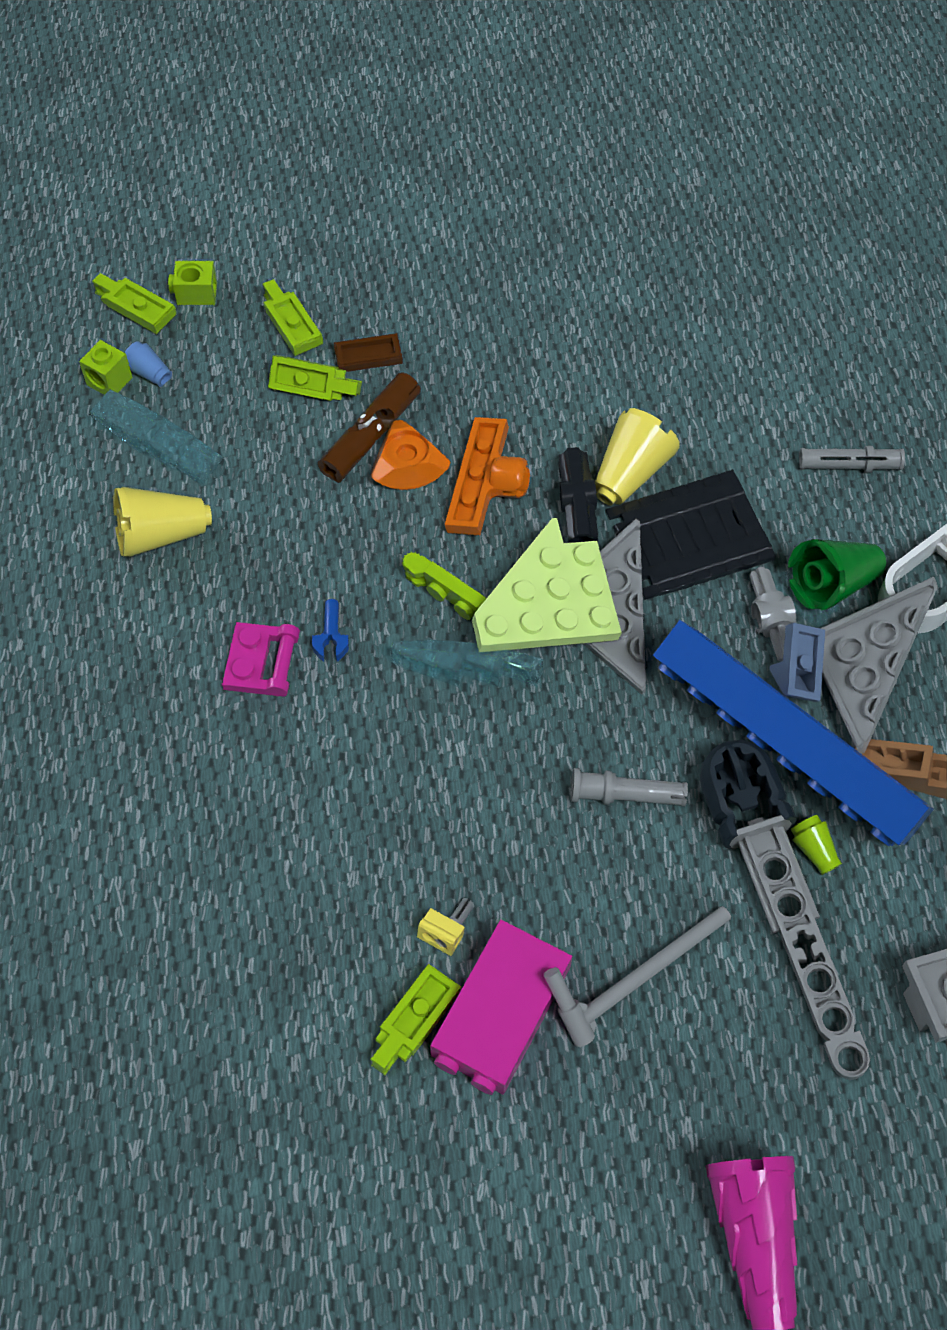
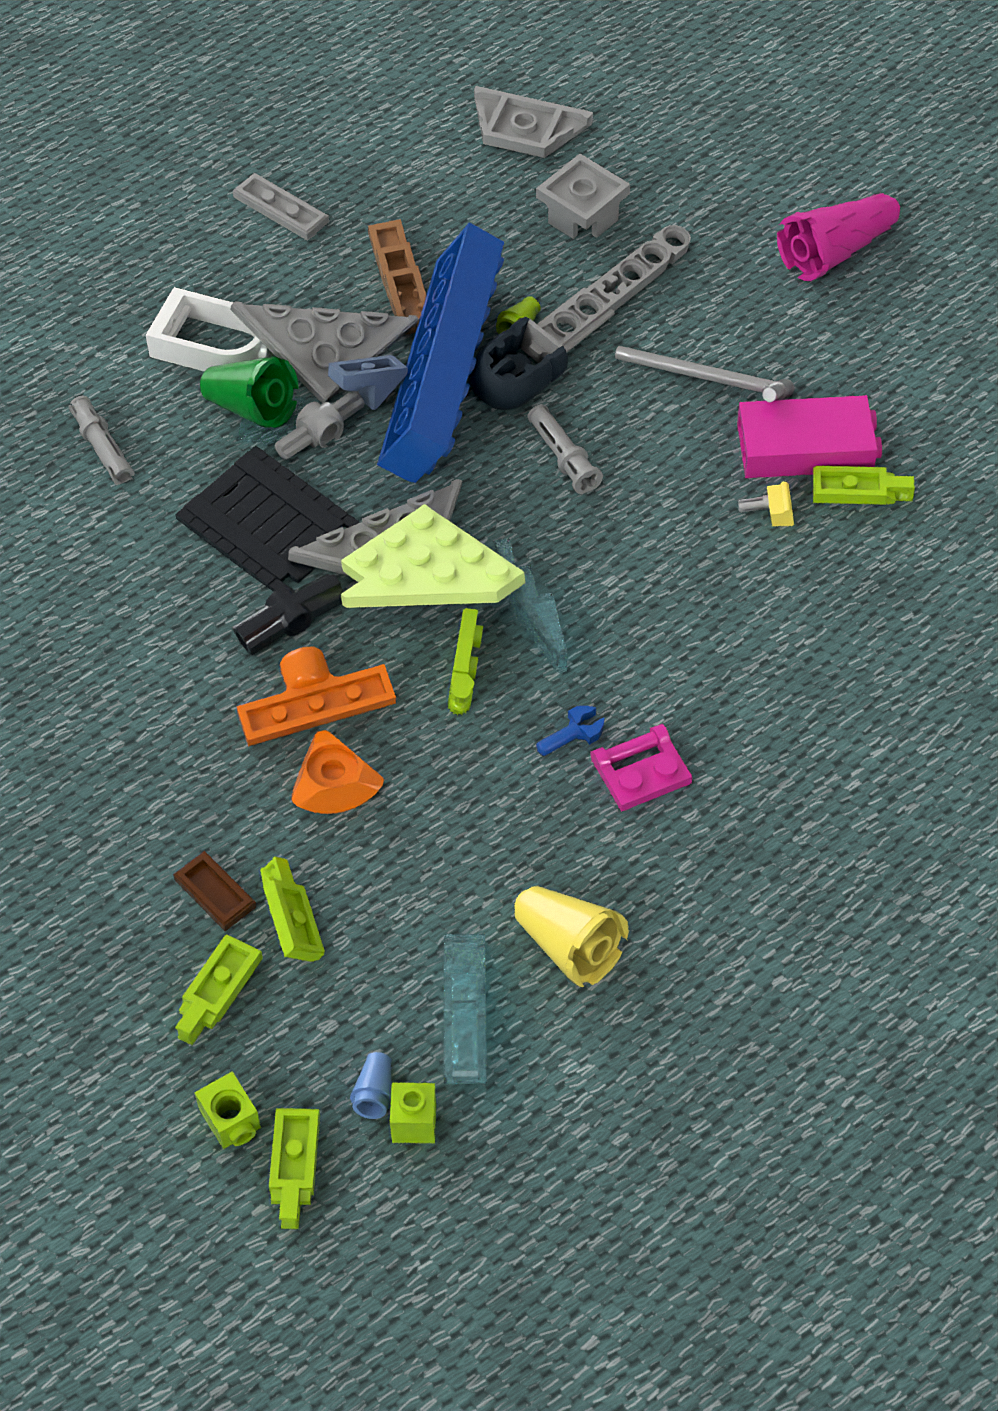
camera: 120 degrees left, 5 degrees down
(362, 435) = (289, 824): reddish brown piece -> none
(633, 455) = (219, 585): light yellow cone -> none

